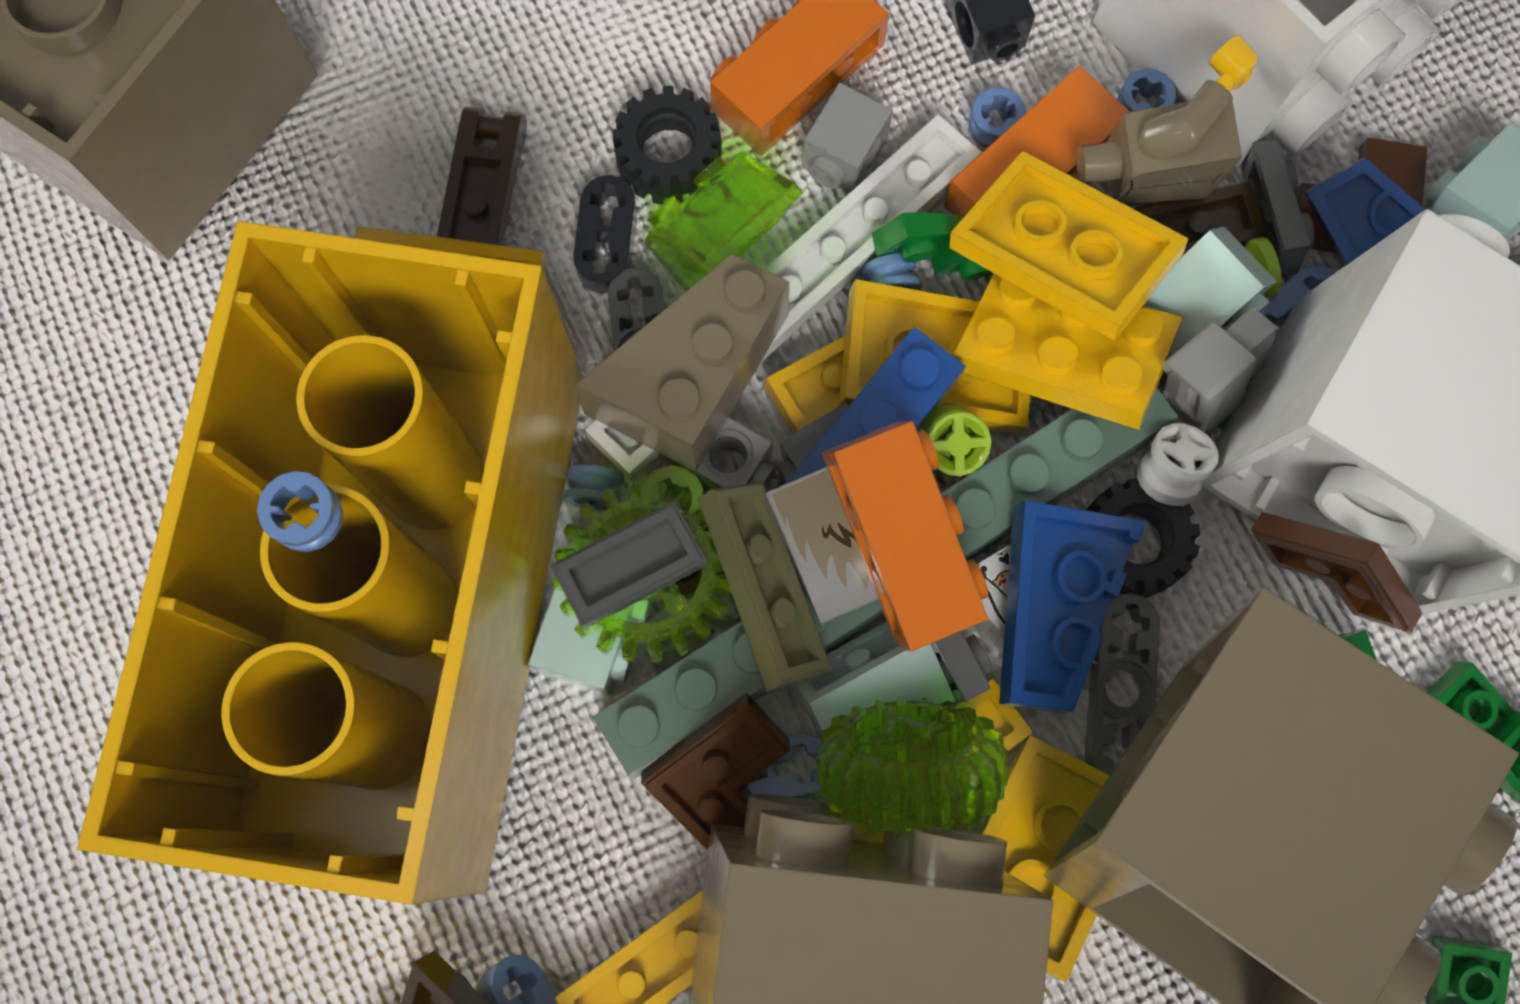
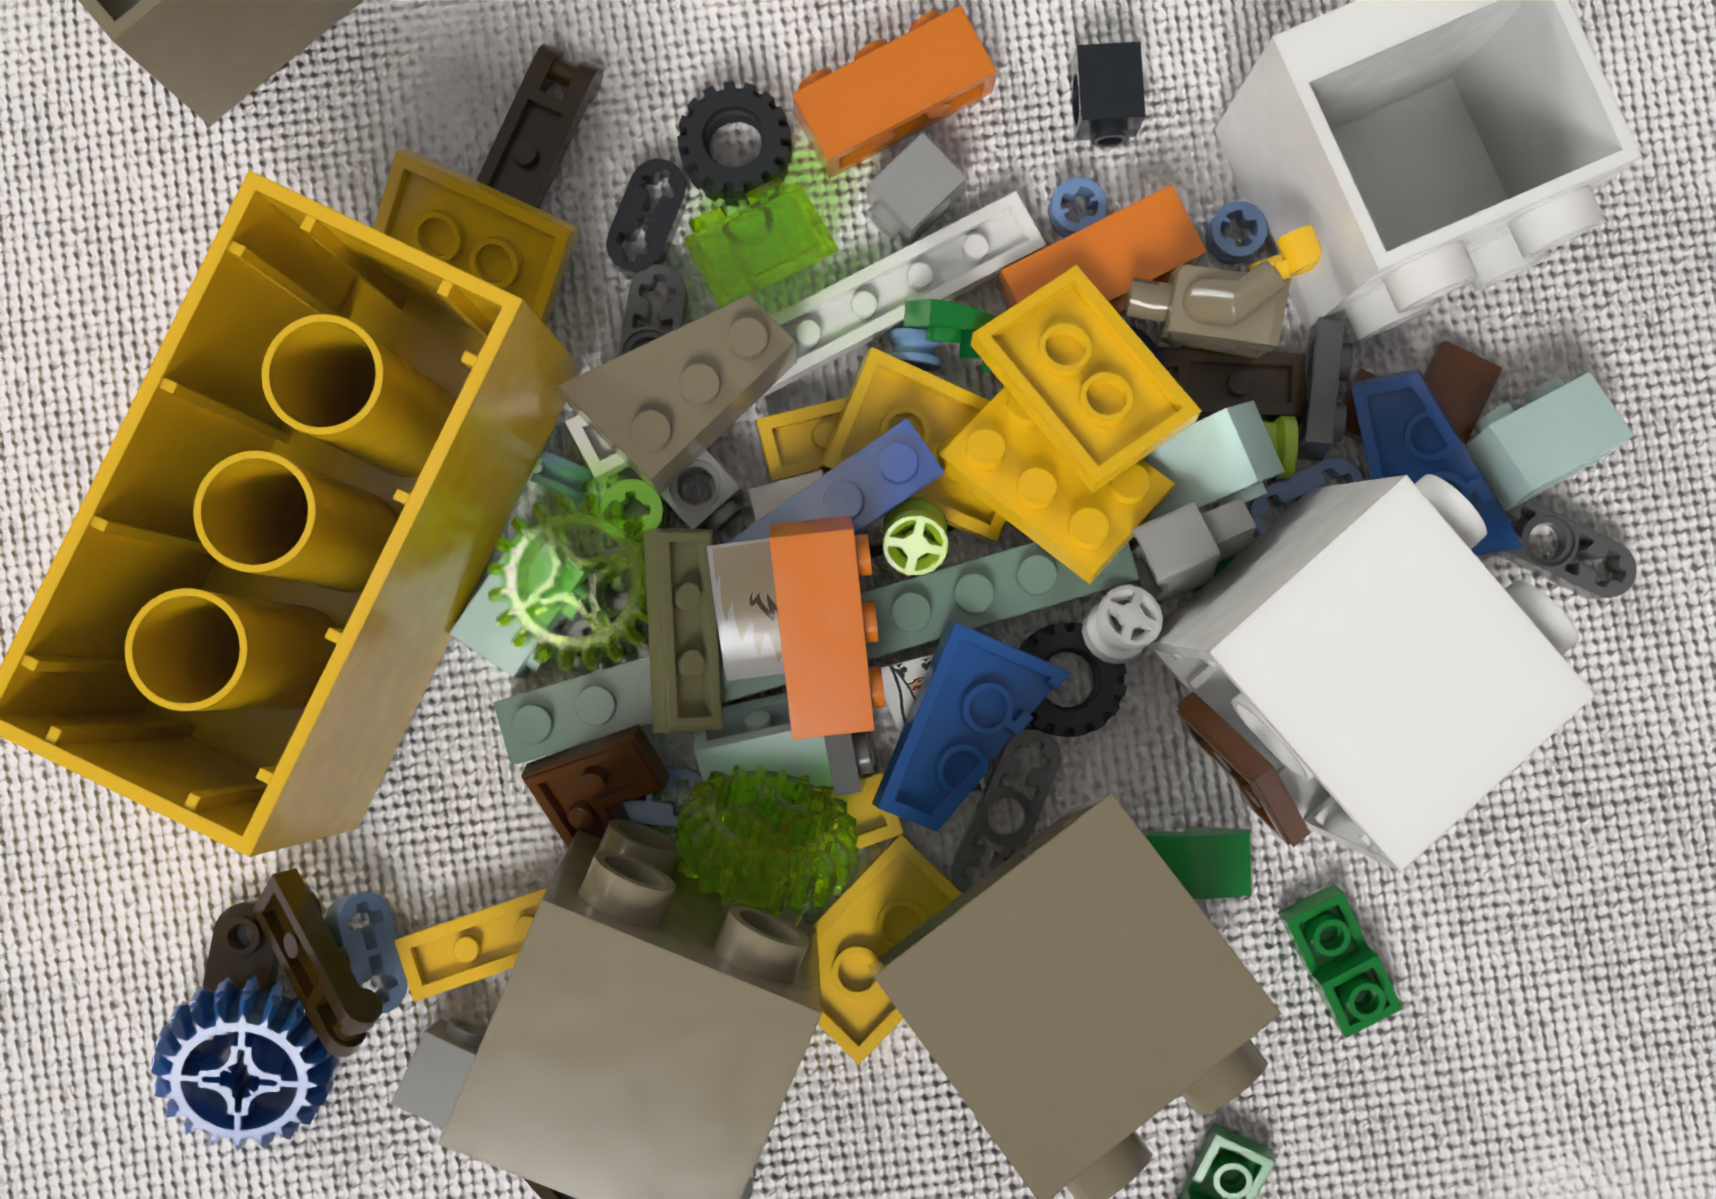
camera: 20 degrees right, 10 degrees up
(305, 487) = (210, 472): medium blue bush -> none
(628, 565) = (557, 577): dark grey tile -> none

